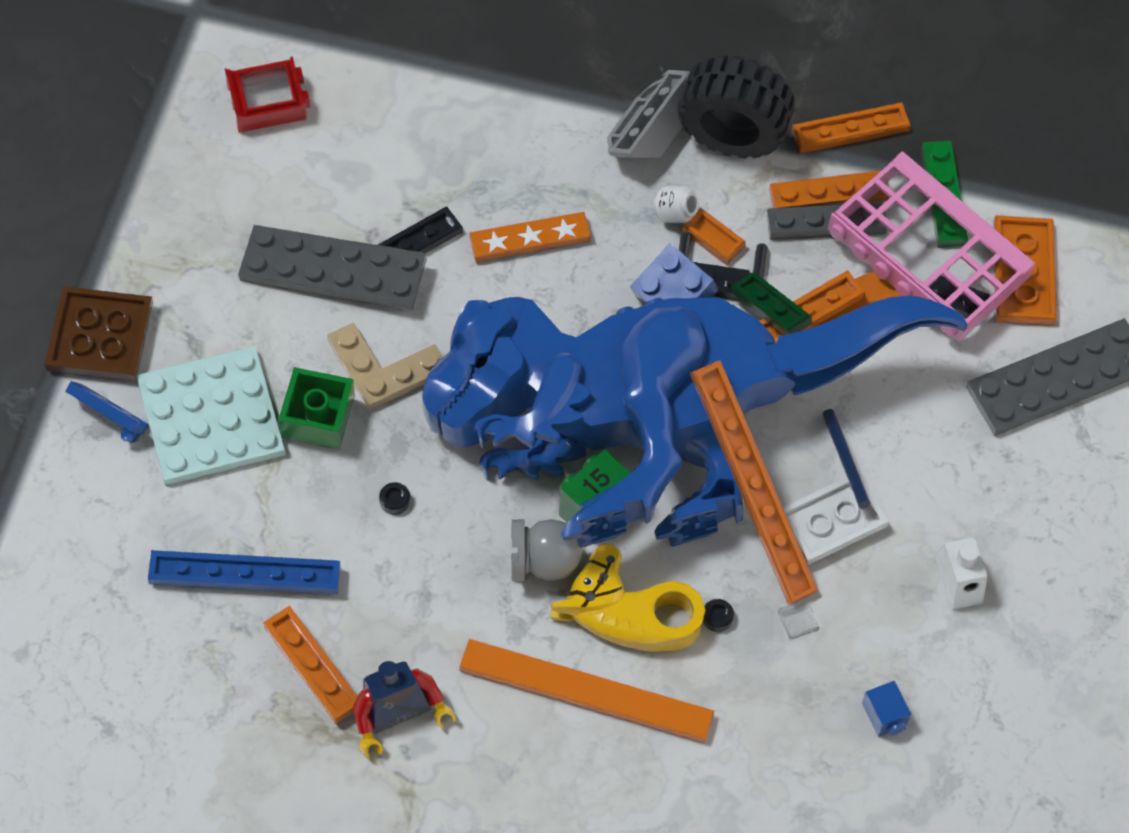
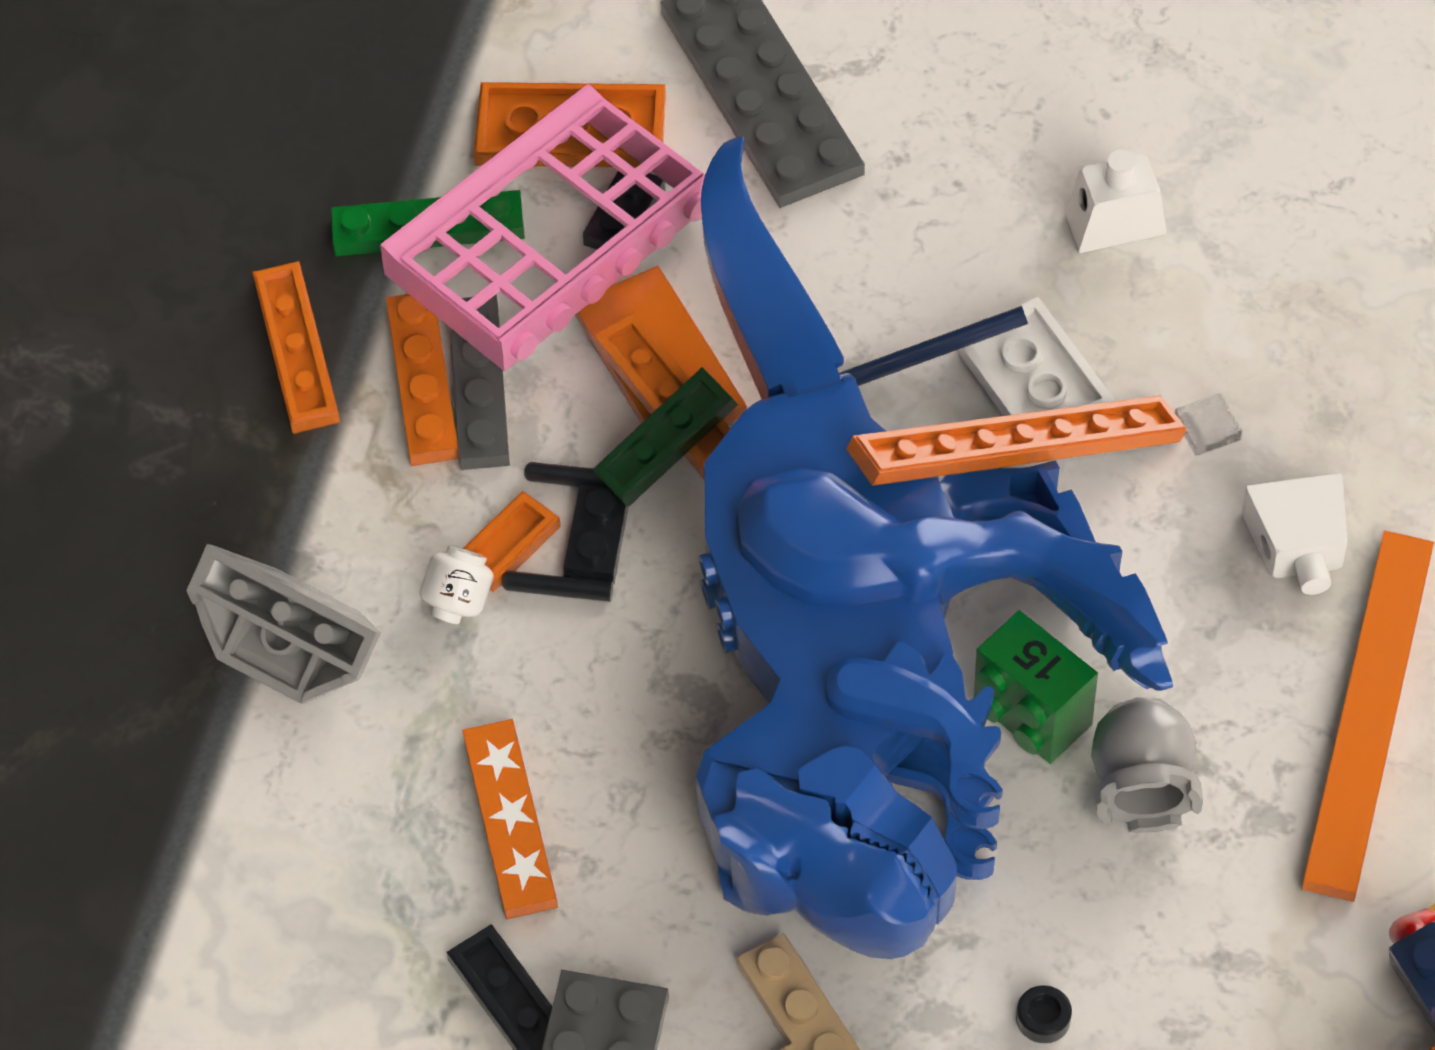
camera: 85 degrees left, 5 degrees down
(624, 618) = (1241, 641): yellow animal -> none
(673, 277) = (629, 579): brick -> none
(713, 660) = (1299, 528): none -> white torso
(718, 615) = (1213, 531): black tile -> none
(736, 106) = (291, 467): black tyre -> none
(886, 709) = (1352, 306): blue brick -> none

